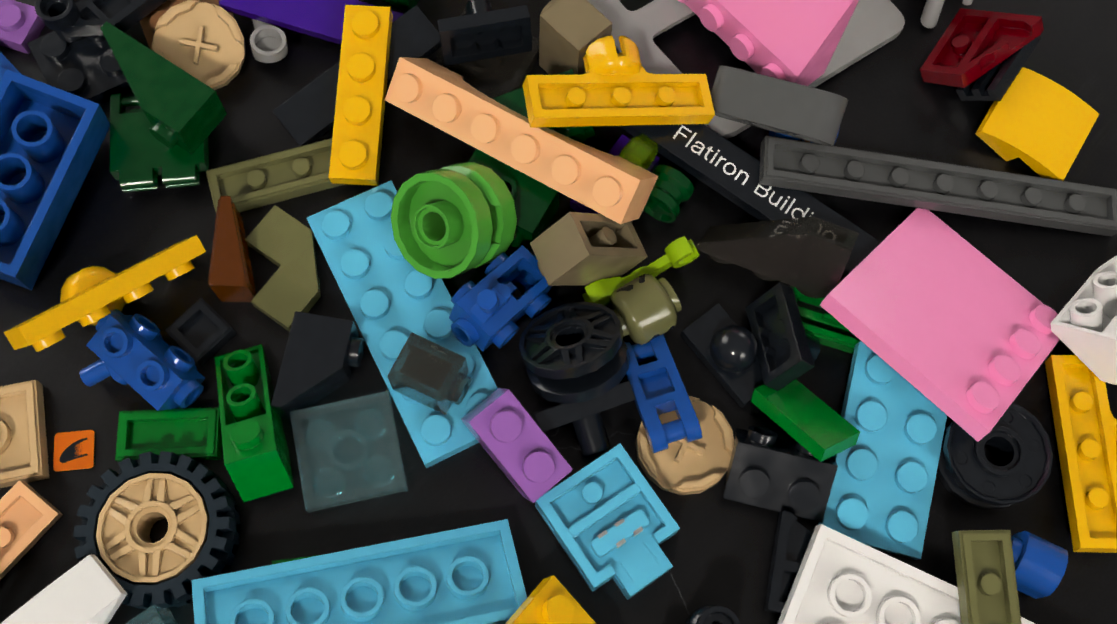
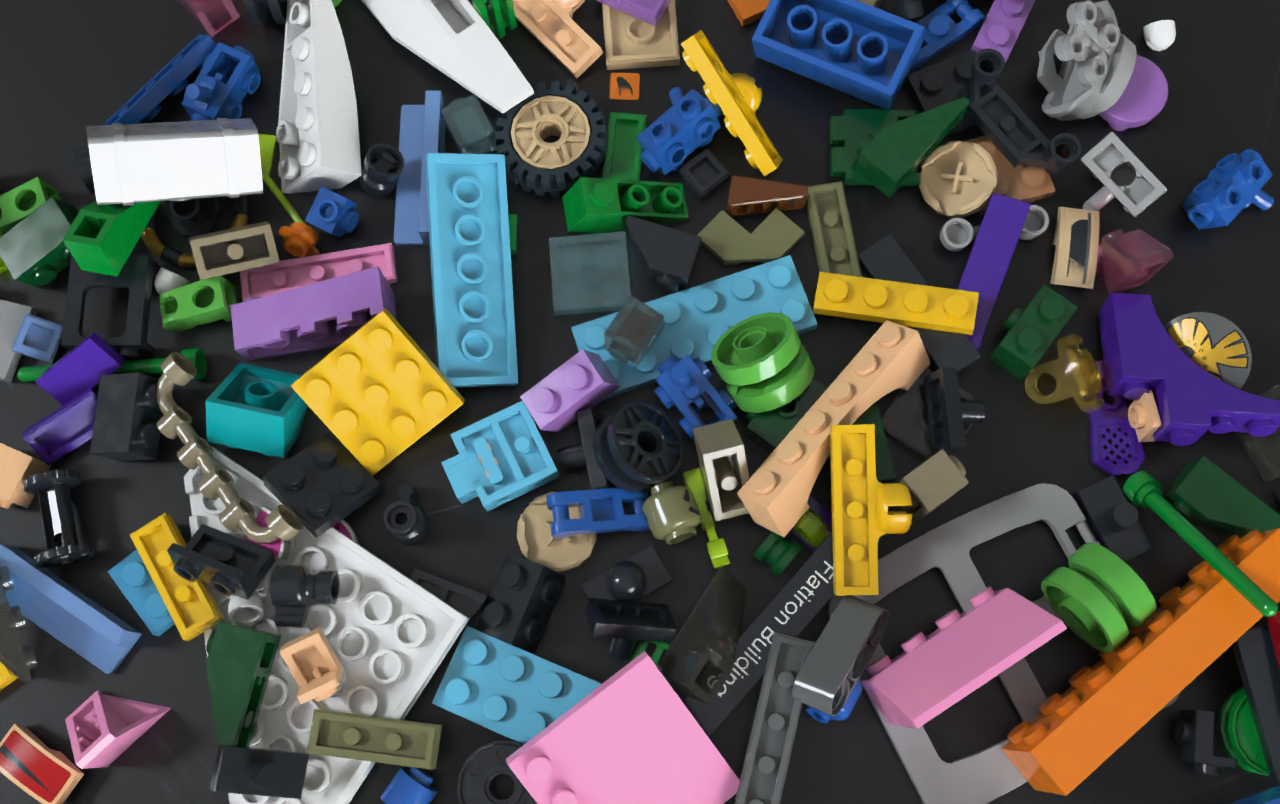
camera: 105 degrees right, 5 degrees up
(806, 419) = (554, 629): green tile -> none

